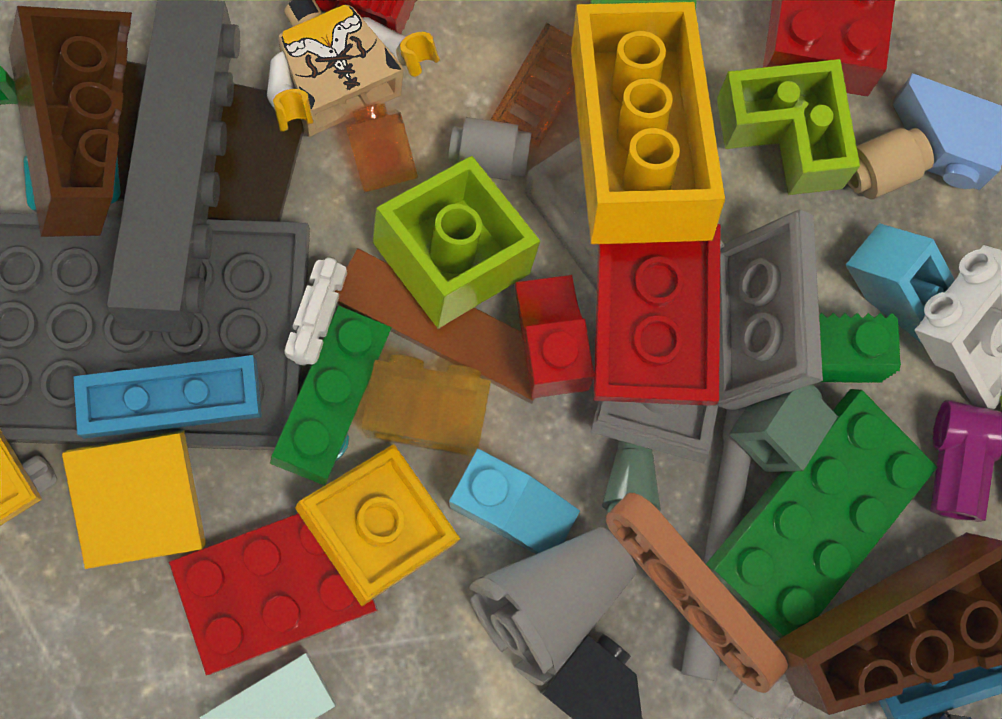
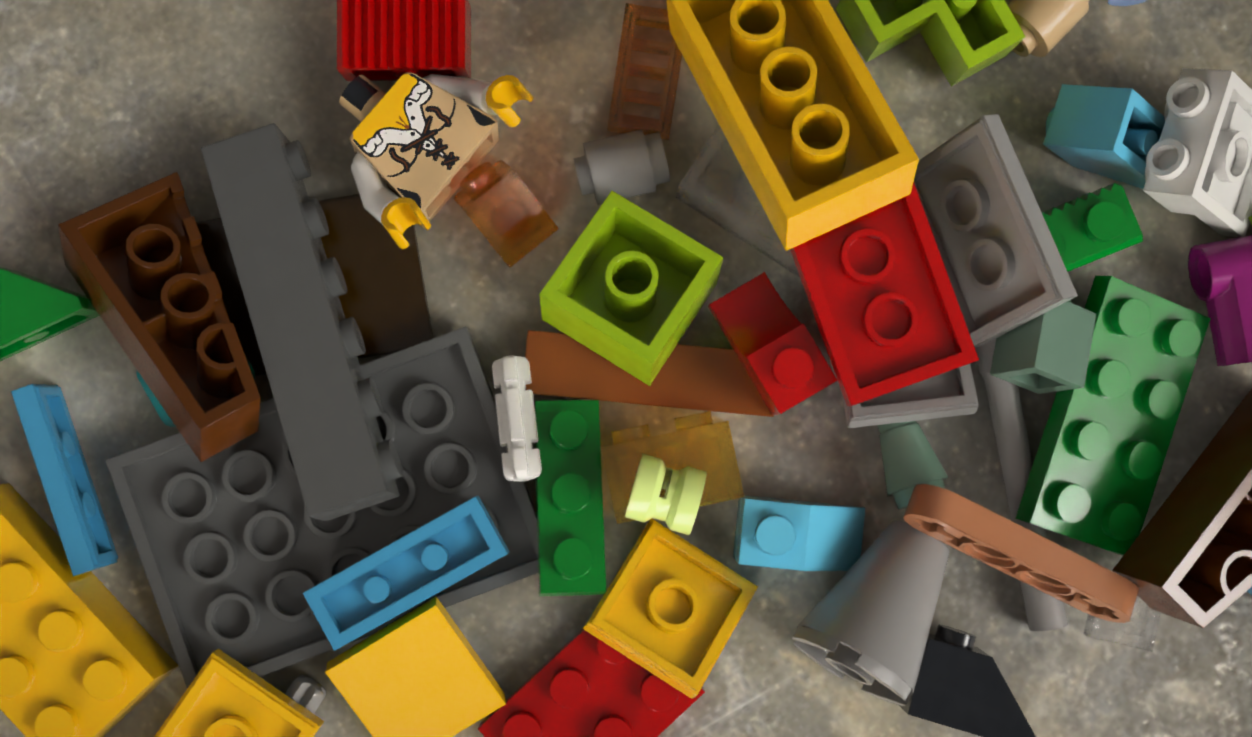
camera: 15 degrees left, 10 degrees up
(411, 413) = (681, 497): none -> yellowish green wheel

